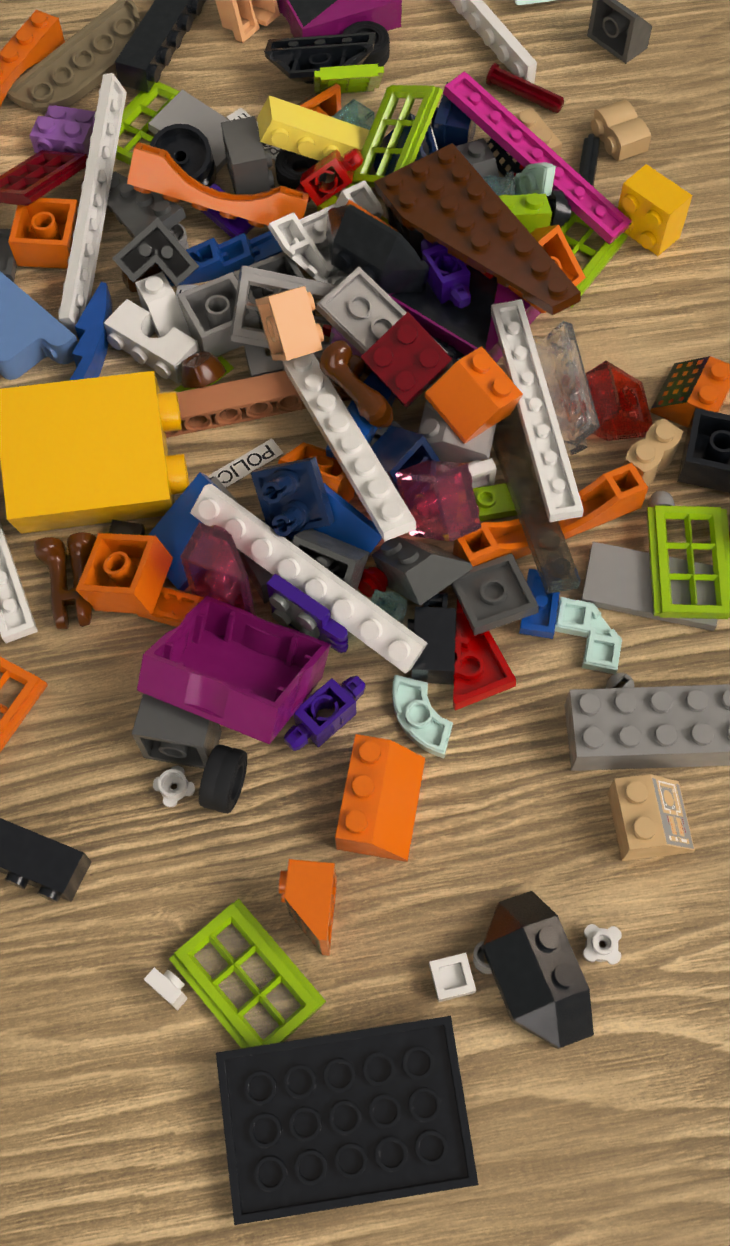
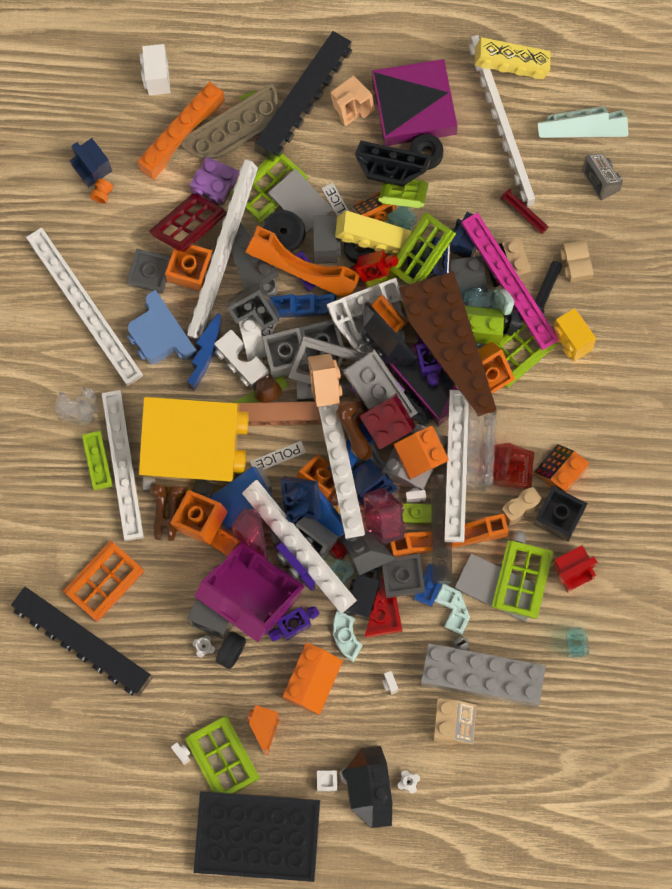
camera: 15 degrees right, 10 degrees up
(27, 543) = (146, 482): none -> light grey hinge
(520, 775) = (389, 683): none -> white plate

